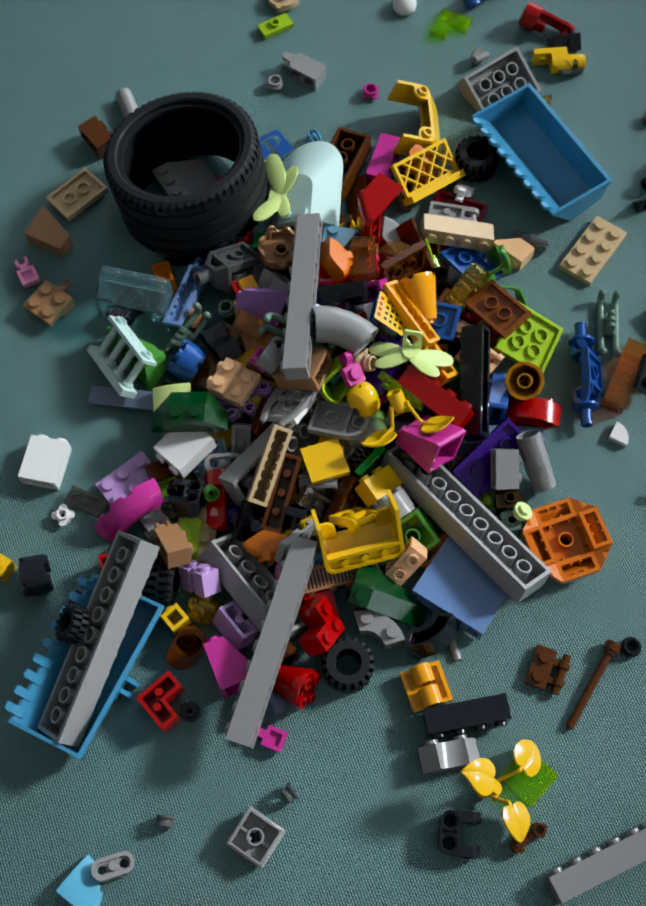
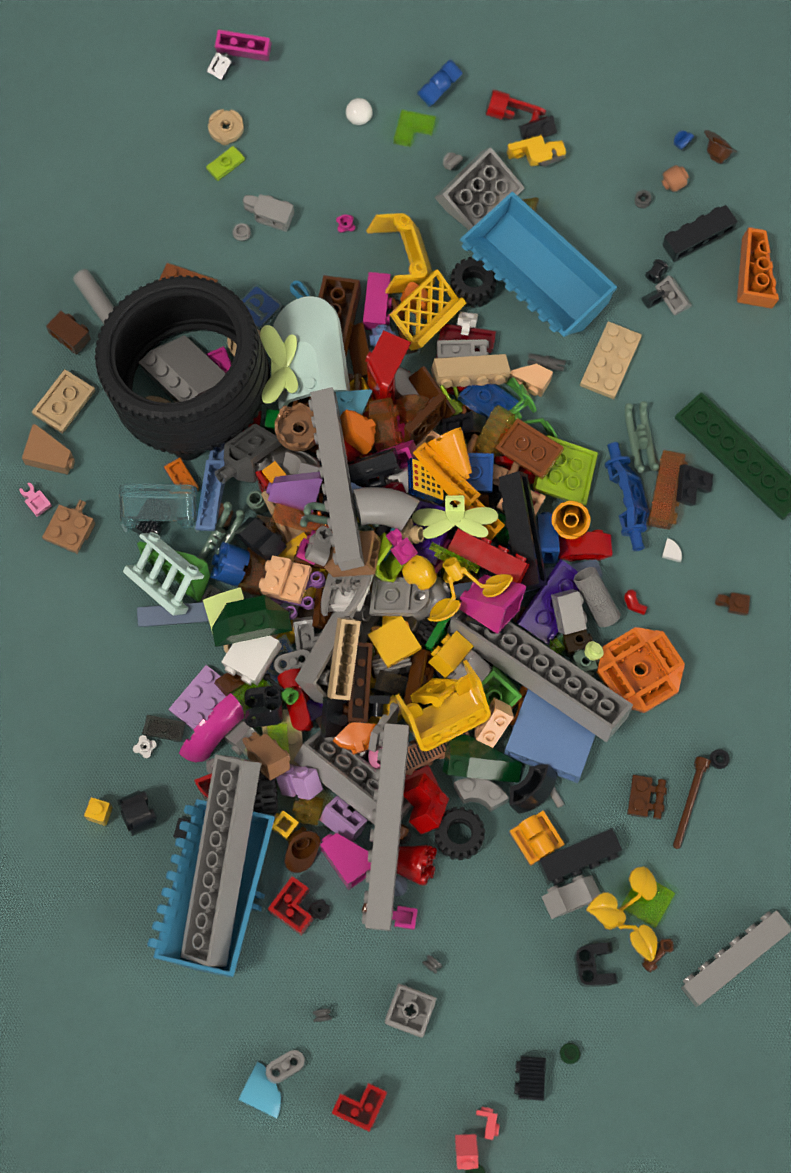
camera: 15 degrees left, 5 degrees up
(45, 462) = (112, 696): white brick -> none
(72, 624) = (193, 853): black tyre -> none
(570, 476) = (632, 602): none -> red arm

